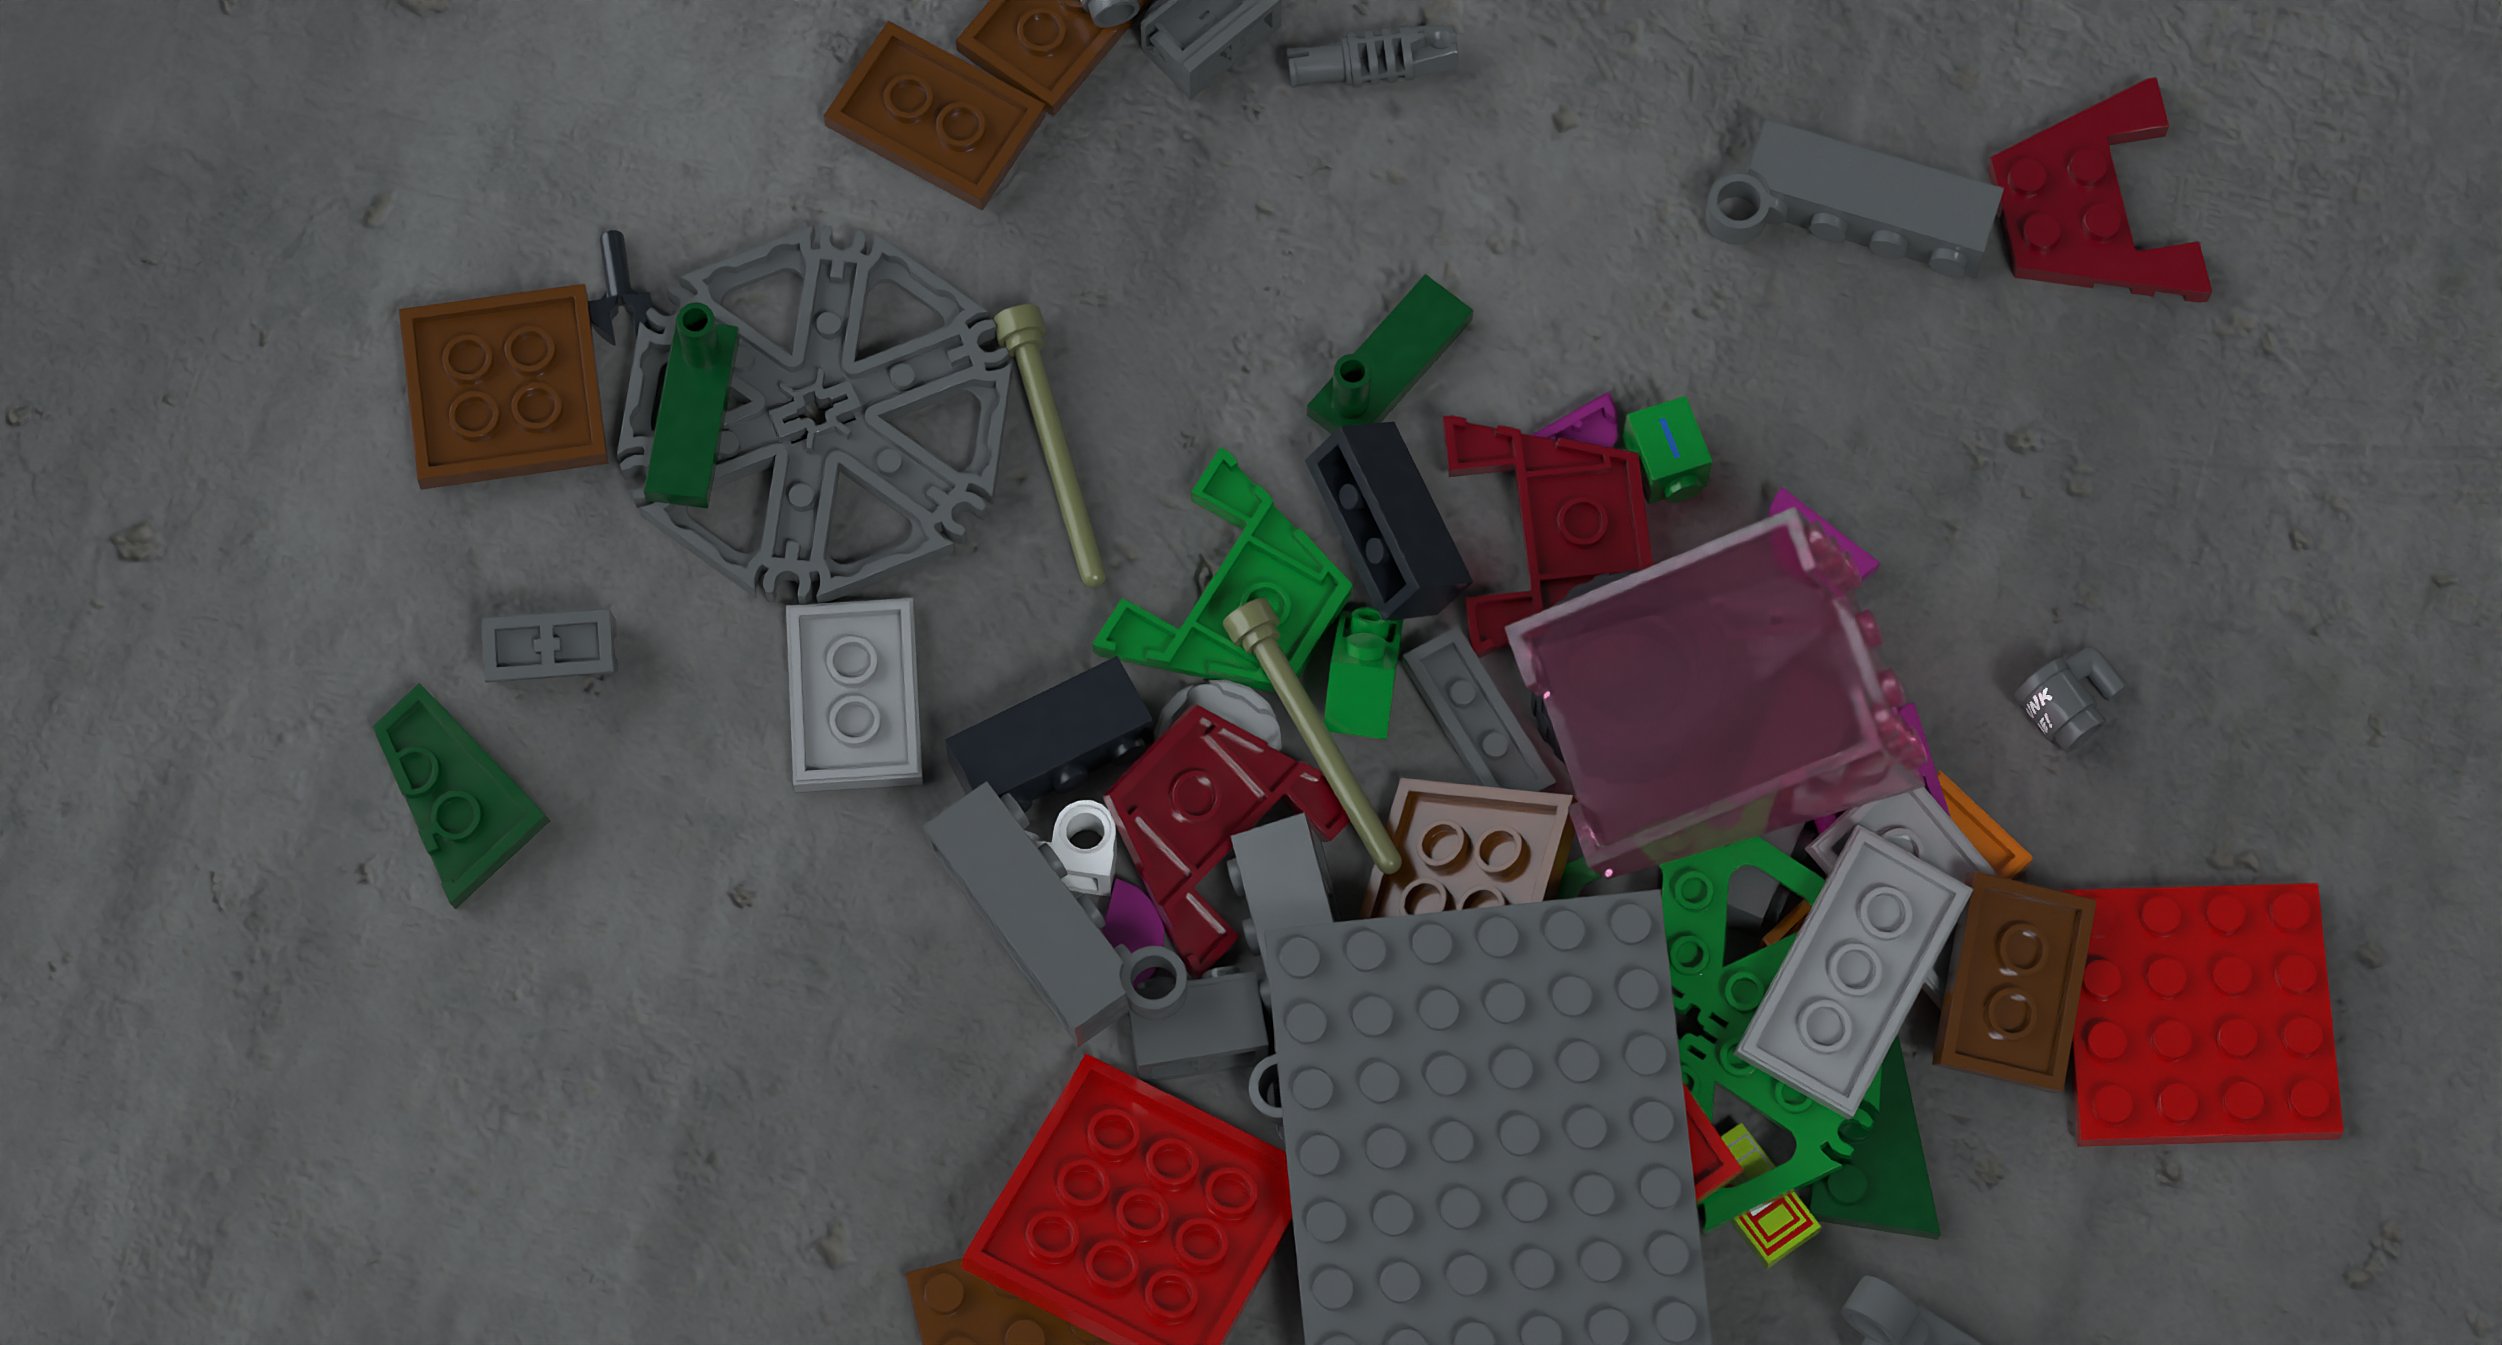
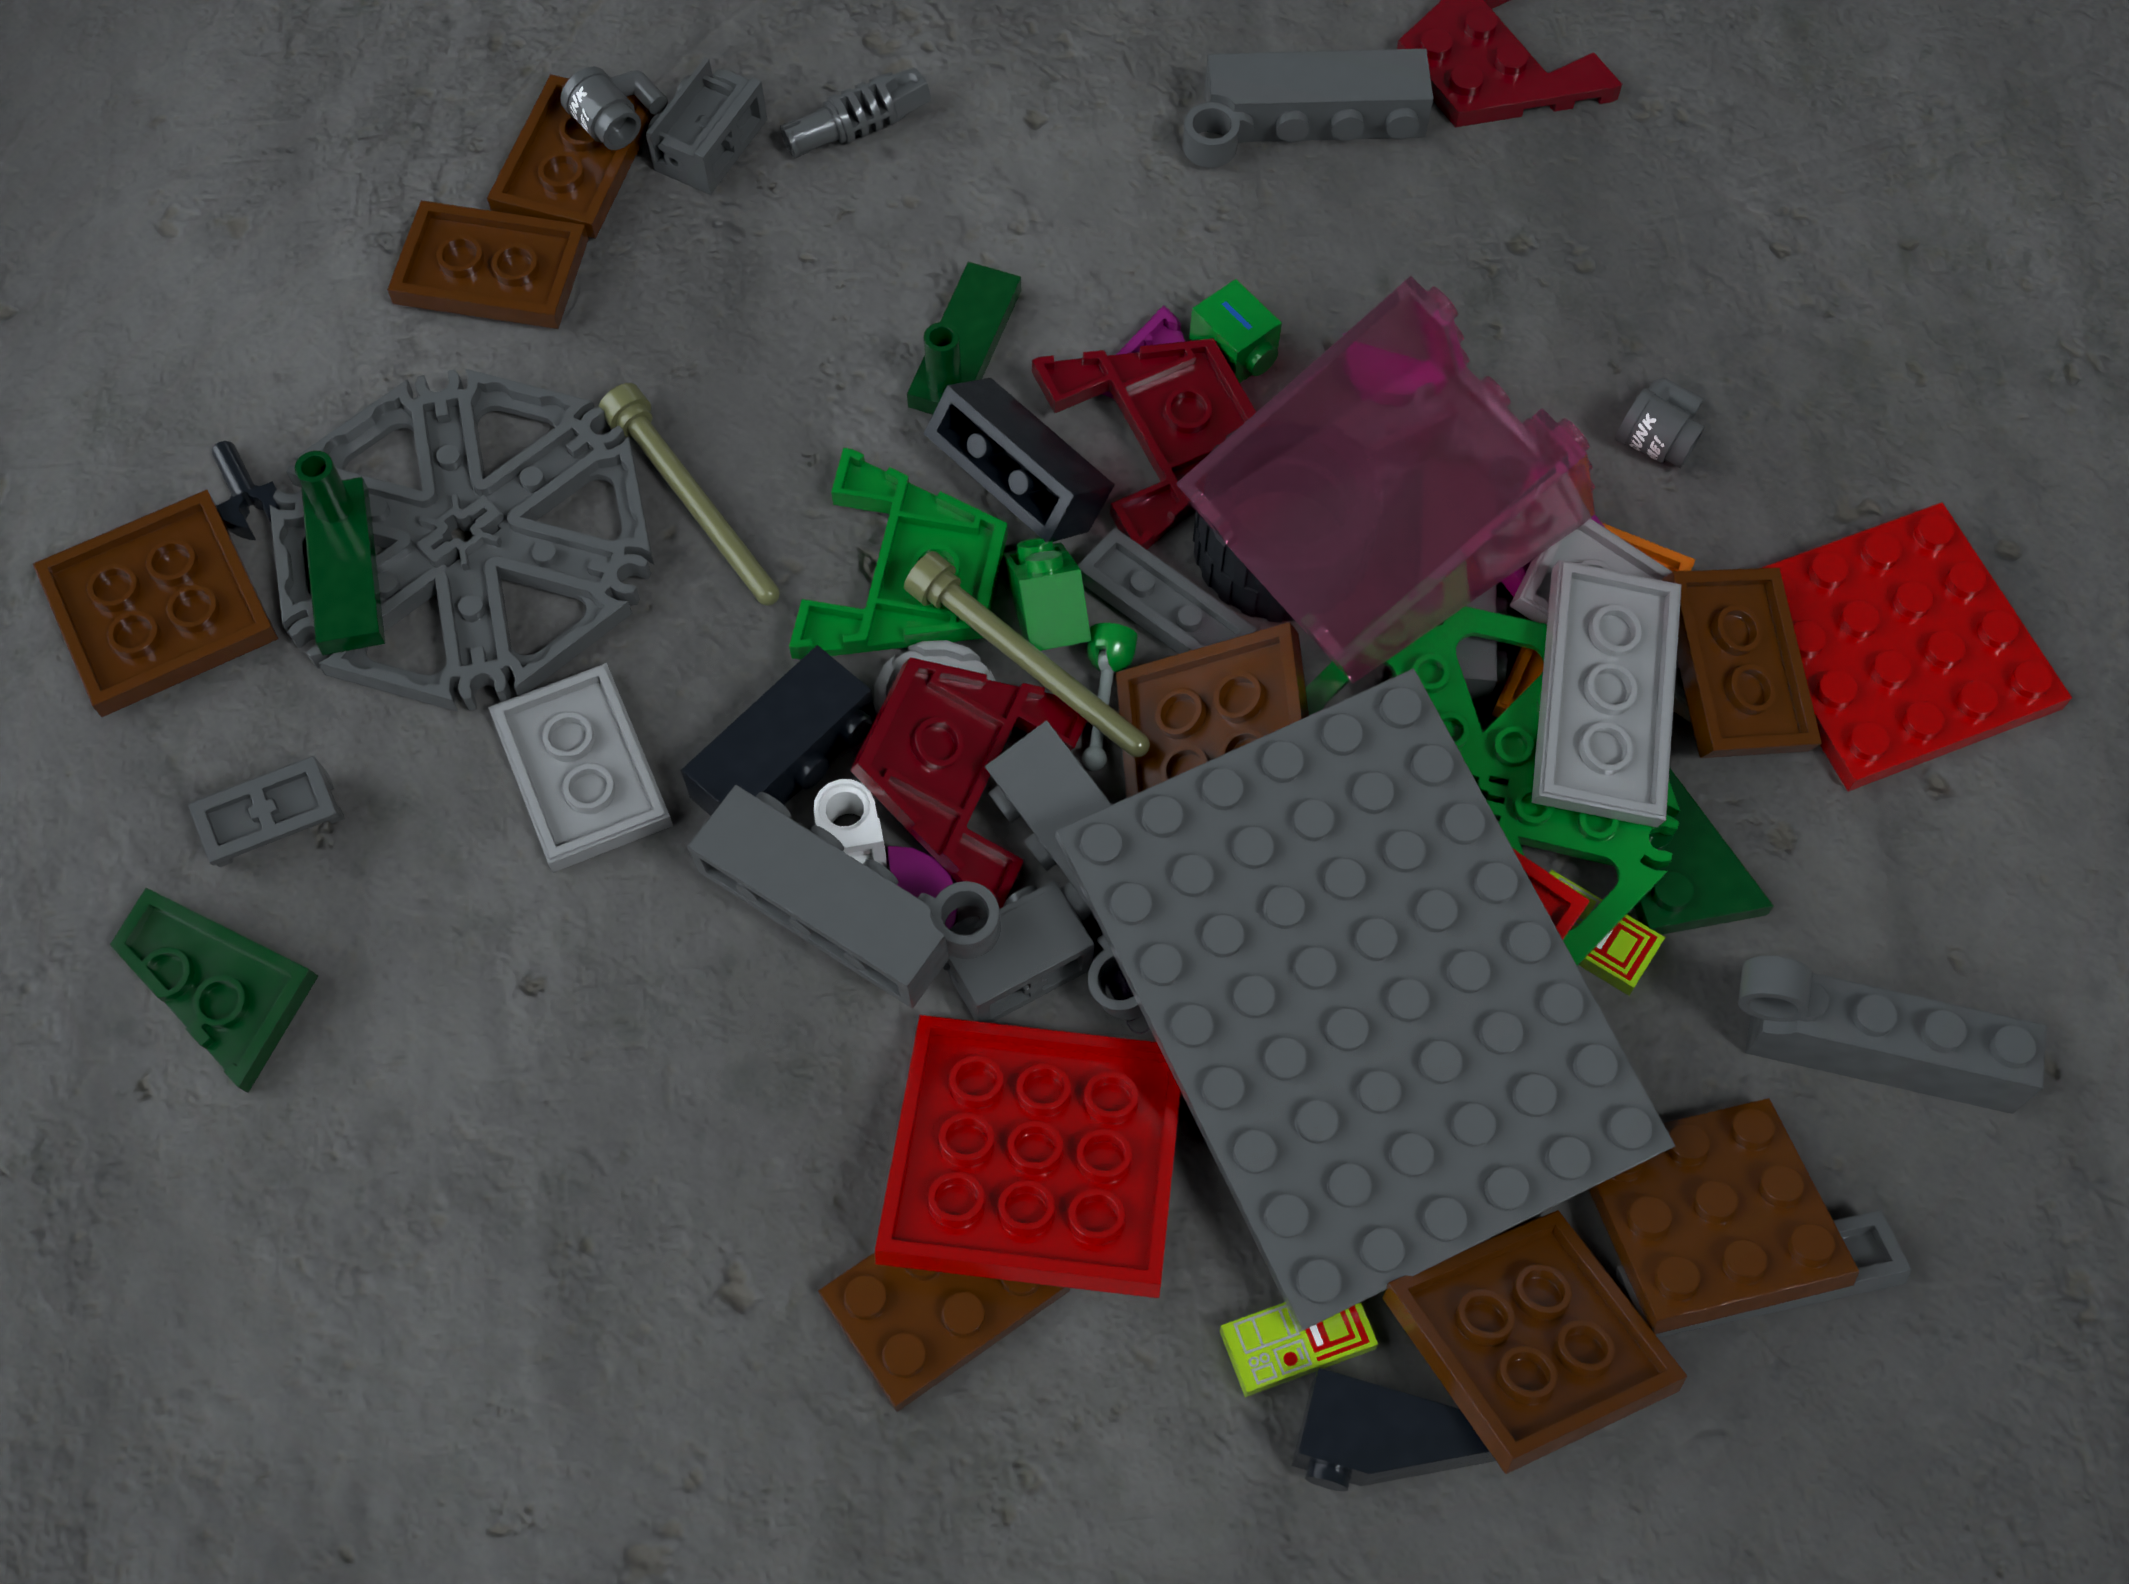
camera: 20 degrees left, 5 degrees down
(1403, 755) = (1109, 652): none -> hinge

